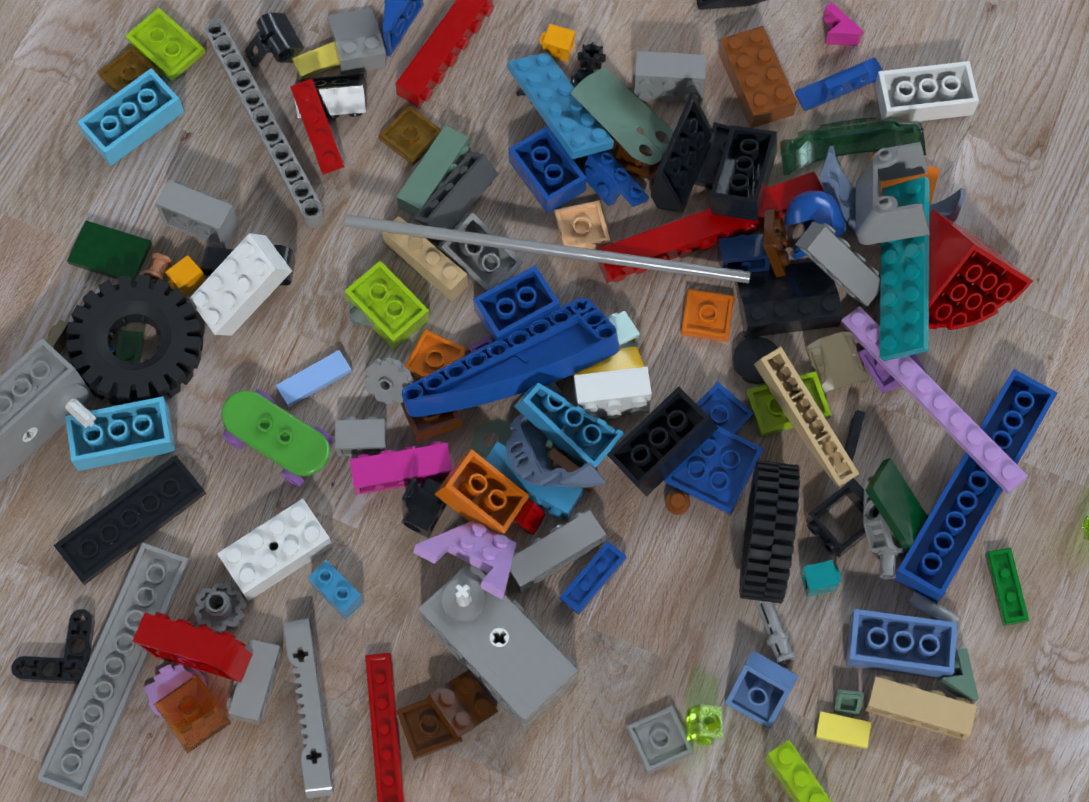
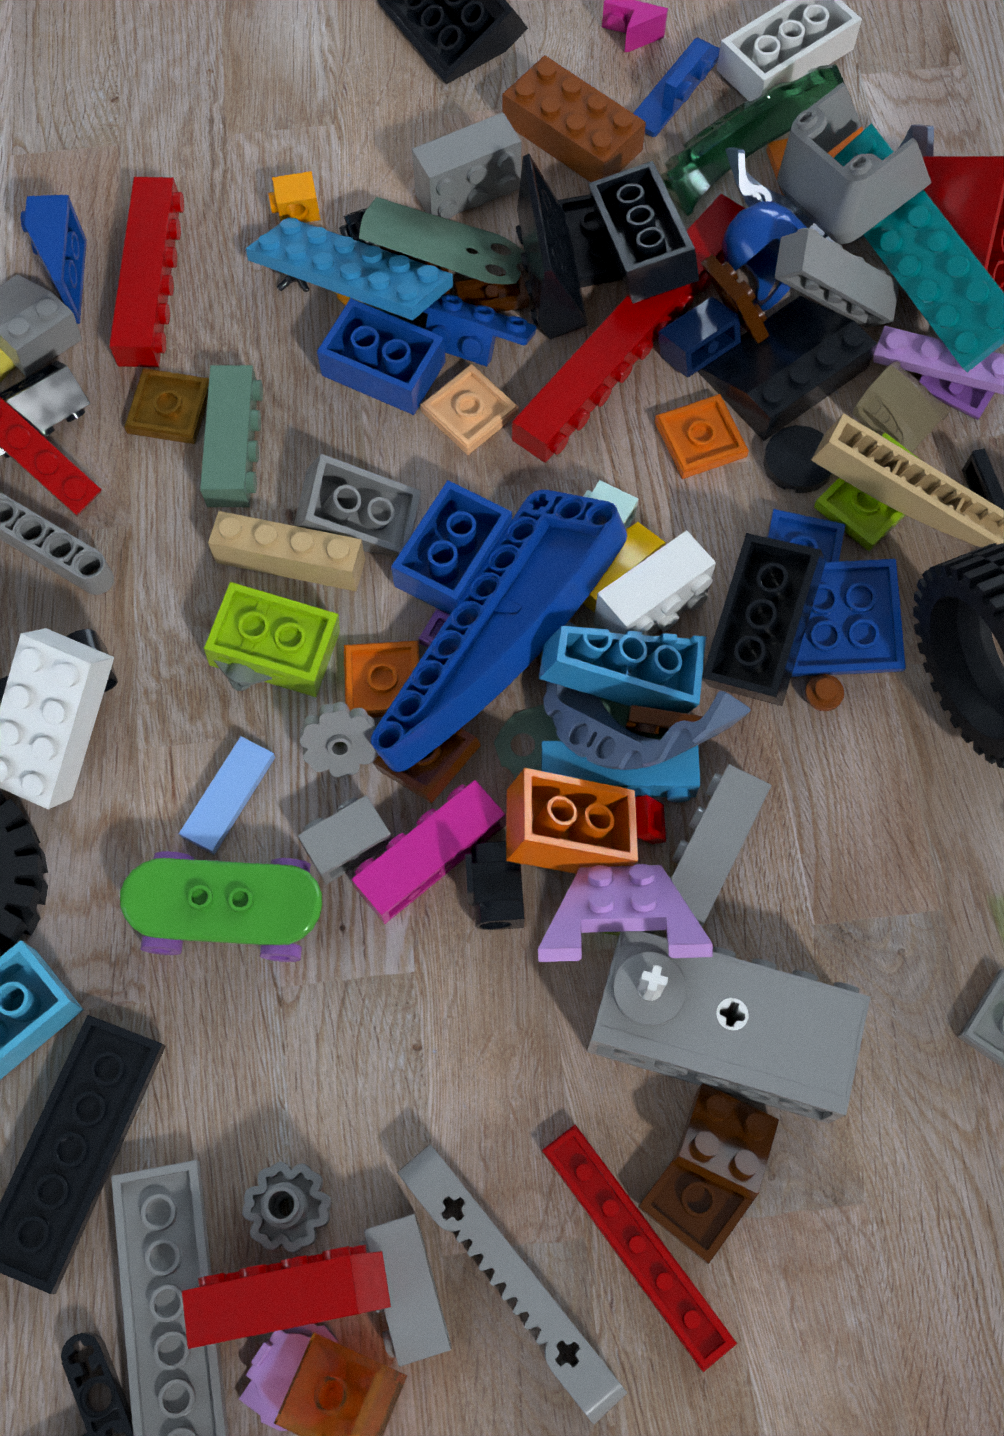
camera: 30 degrees left, 0 degrees up
(298, 541) = (306, 1111): white brick -> none
(336, 589) = (443, 1078): dark azure brick -> none
(457, 192) = (280, 449): dark grey brick -> none
(547, 248) = (436, 455): light grey piece -> none
(591, 56) = (349, 195): black gear -> none
(593, 578) = (784, 855): blue plate -> none

